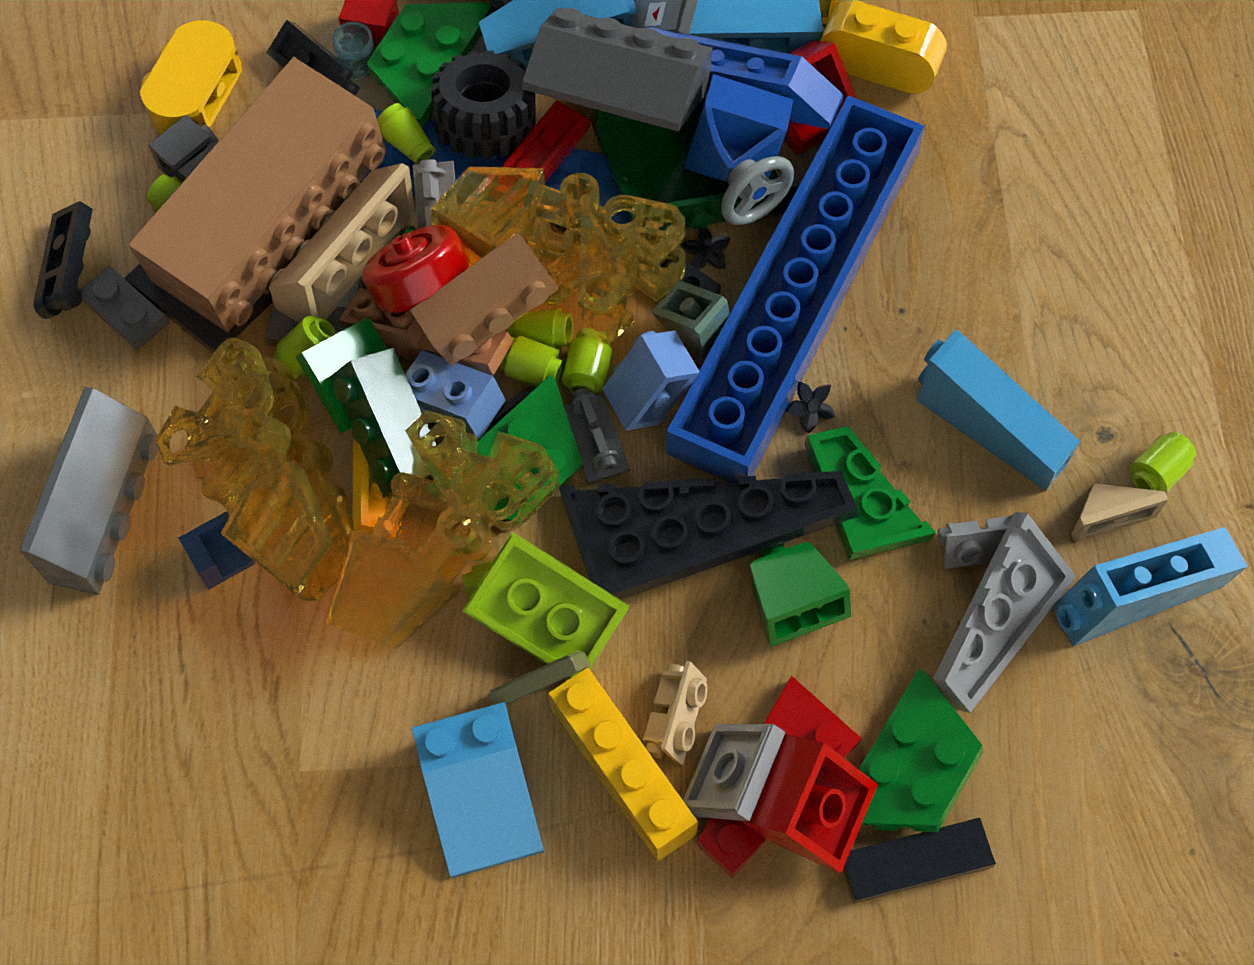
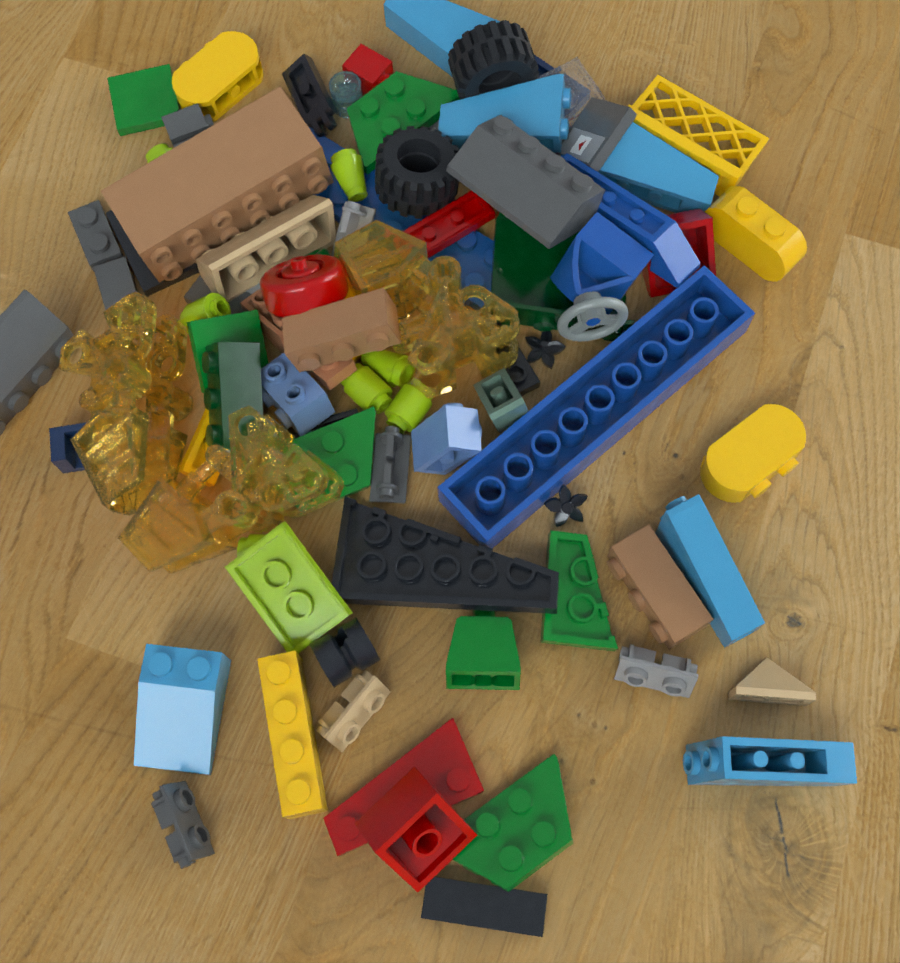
camera: 25 degrees right, 5 degrees up
(63, 261) = (67, 184): black plate -> none
(109, 135) = (142, 99): none -> green tile
(178, 359) = (114, 280): none -> dark grey tile
(539, 678) = (259, 643): olive tile -> none
(554, 923) = (176, 806): none -> dark grey hinge
(643, 647) = (344, 652): none -> black wheel
(733, 770) = (369, 778): light grey plate -> none
(950, 451) = (658, 587): none -> medium nougat brick
(986, 276) = (753, 454): none -> yellow brick
(1005, 610) = (644, 734): light grey wing -> none
(1163, 462) = (828, 666): lime brick -> none

